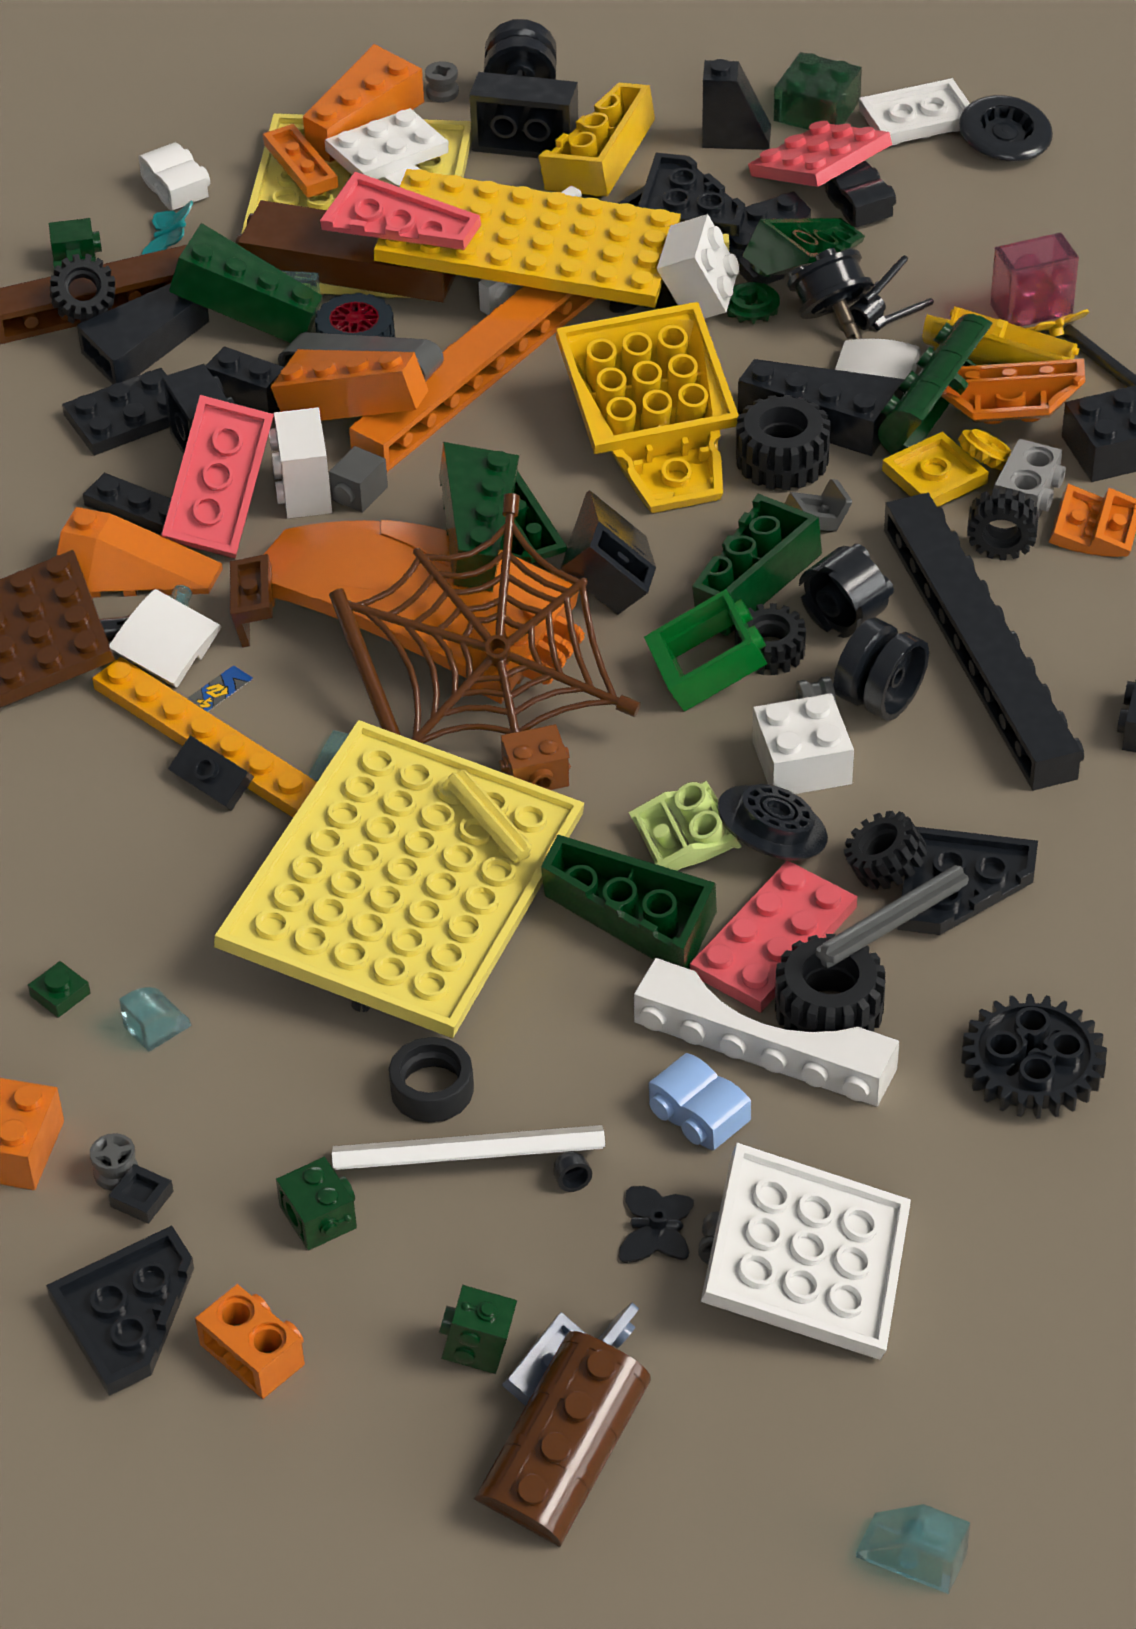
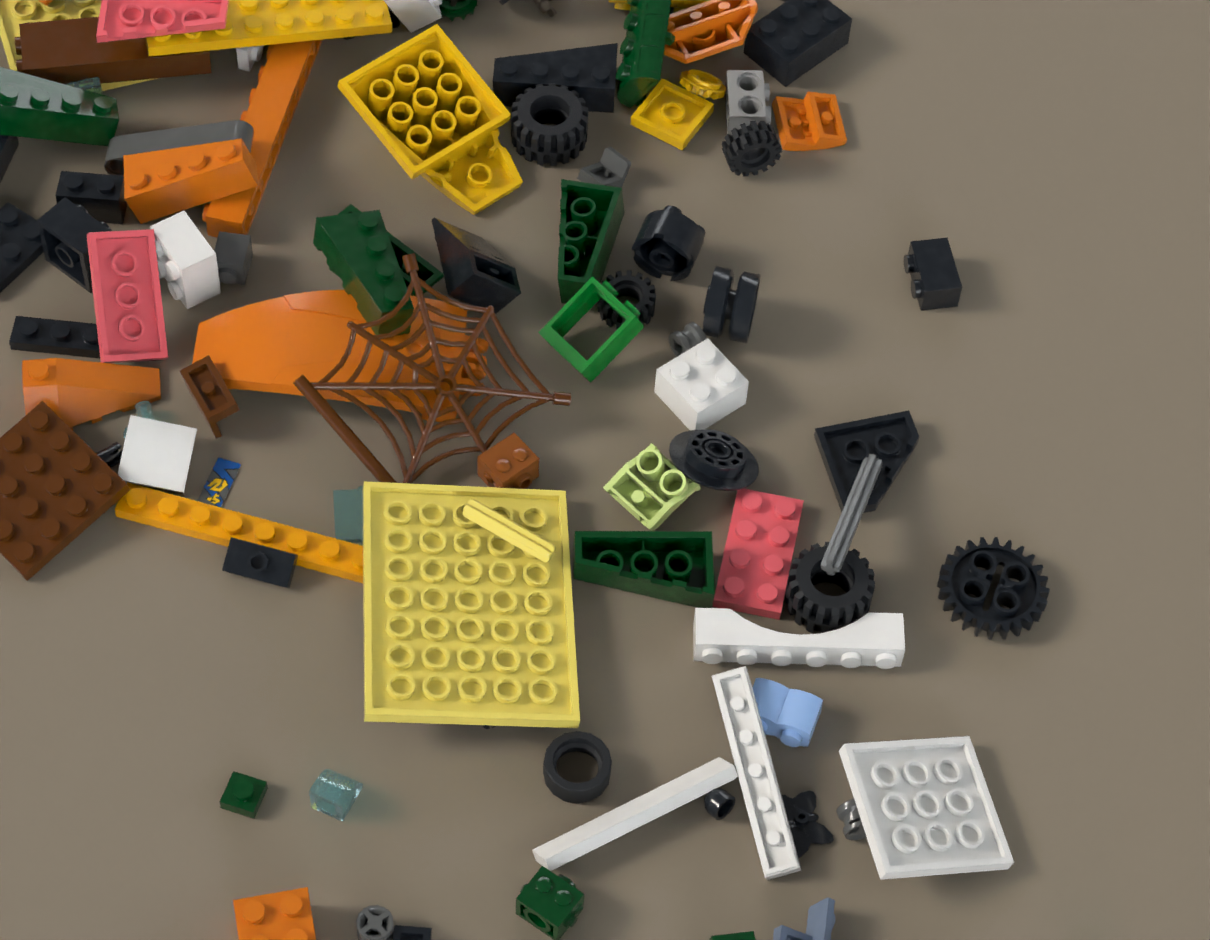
camera: 30 degrees left, 10 degrees up
(356, 316) = (149, 109): wheel -> none
(627, 1151) = (756, 773): none -> white tile
(879, 357) = (579, 28): white slope -> none
(885, 850) = (799, 443): black tyre -> none
(983, 642) = (781, 252): black brick -> none

